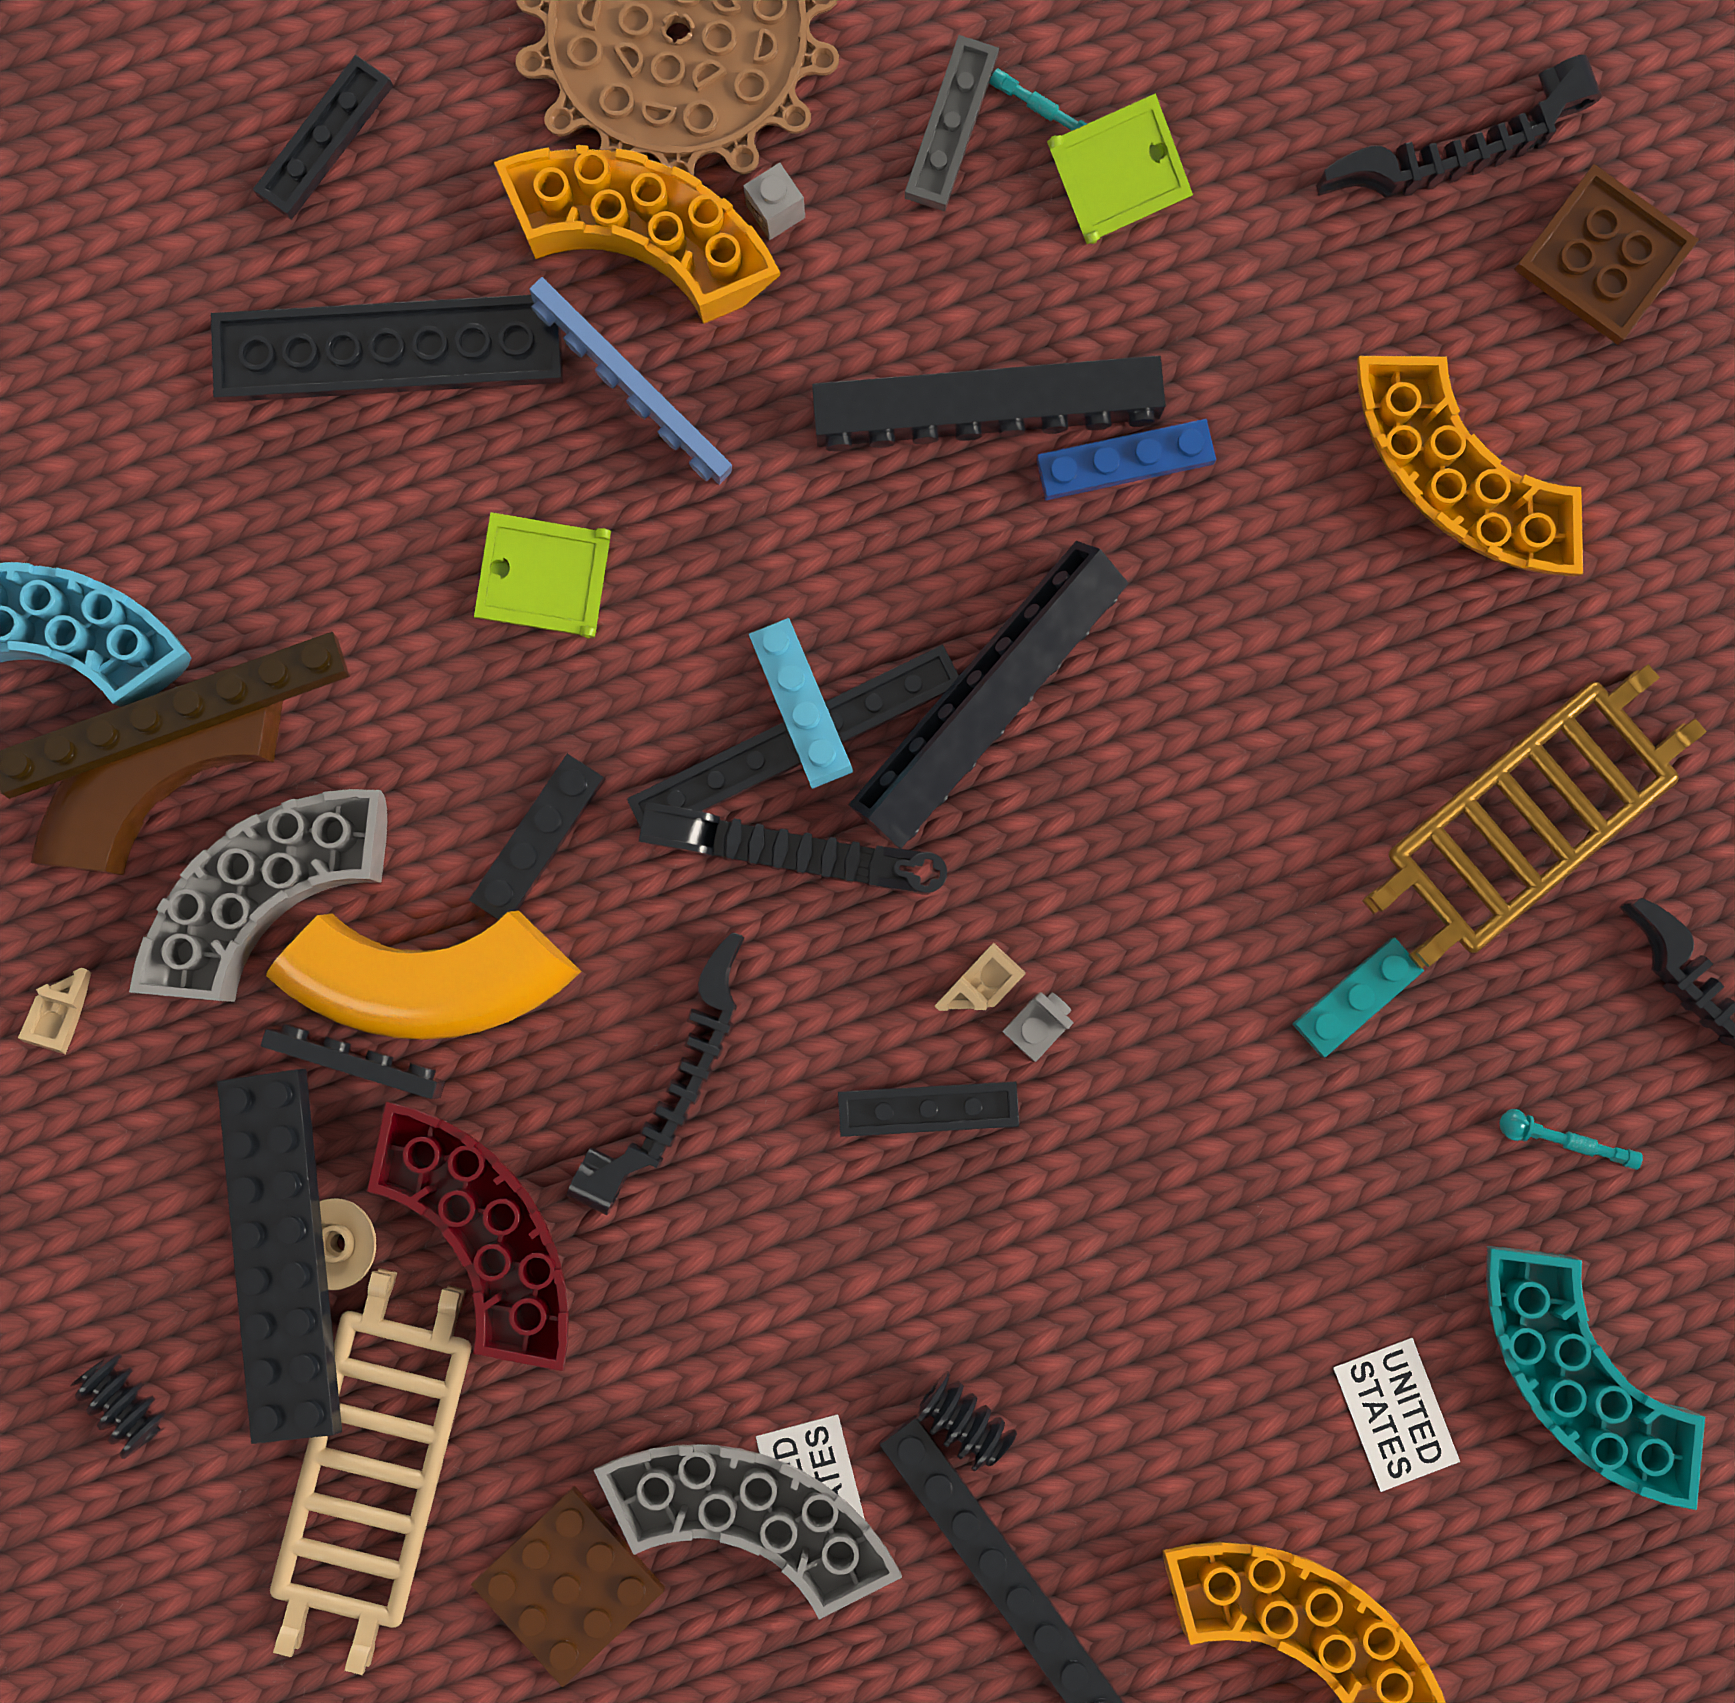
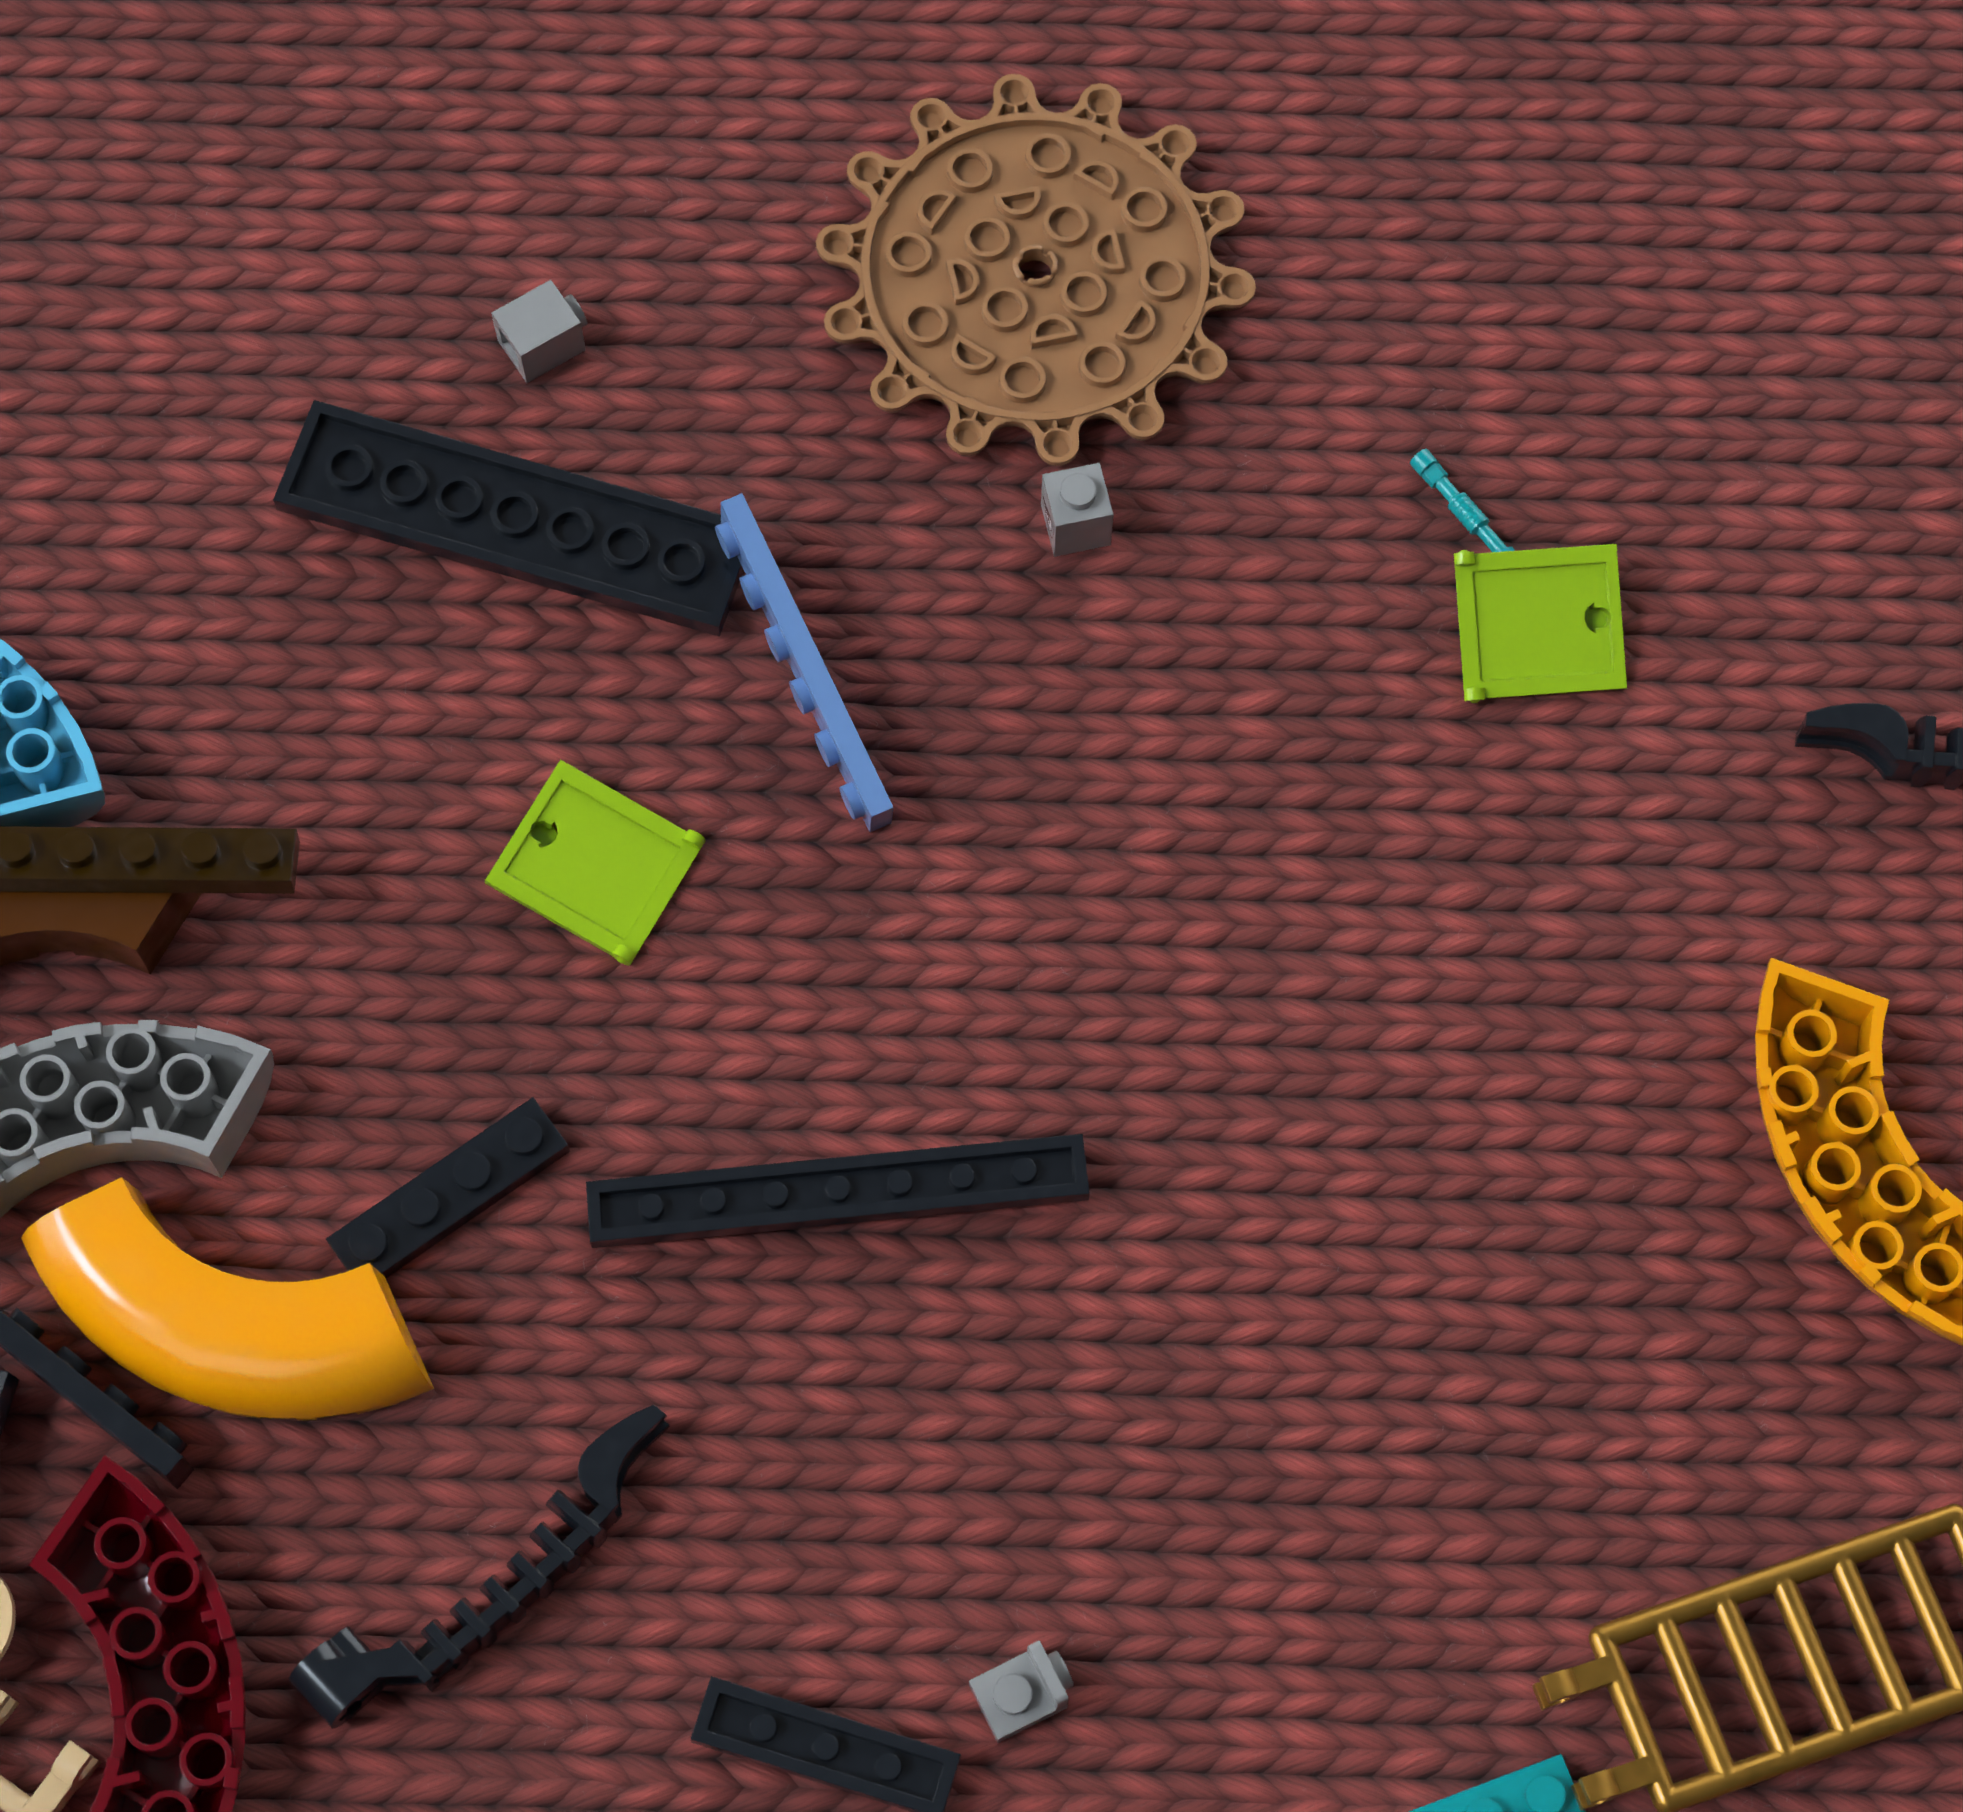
camera: 20 degrees right, 15 degrees down
(323, 137) = (542, 245): black plate -> none
(348, 202) = (540, 330): none -> light grey brick
(642, 212) = (901, 465): light orange brick -> none
(710, 836) = (674, 1271): black piece -> none
(800, 703) = (863, 1141): medium azure plate -> none
(951, 123) = (1341, 494): dark grey plate -> none
(983, 982) = (969, 1605): tan slope -> none
(988, 402) = (1259, 850): black brick -> none
(989, 693) = (1117, 1220): black brick -> none
(1126, 459) = (1417, 987): blue plate -> none

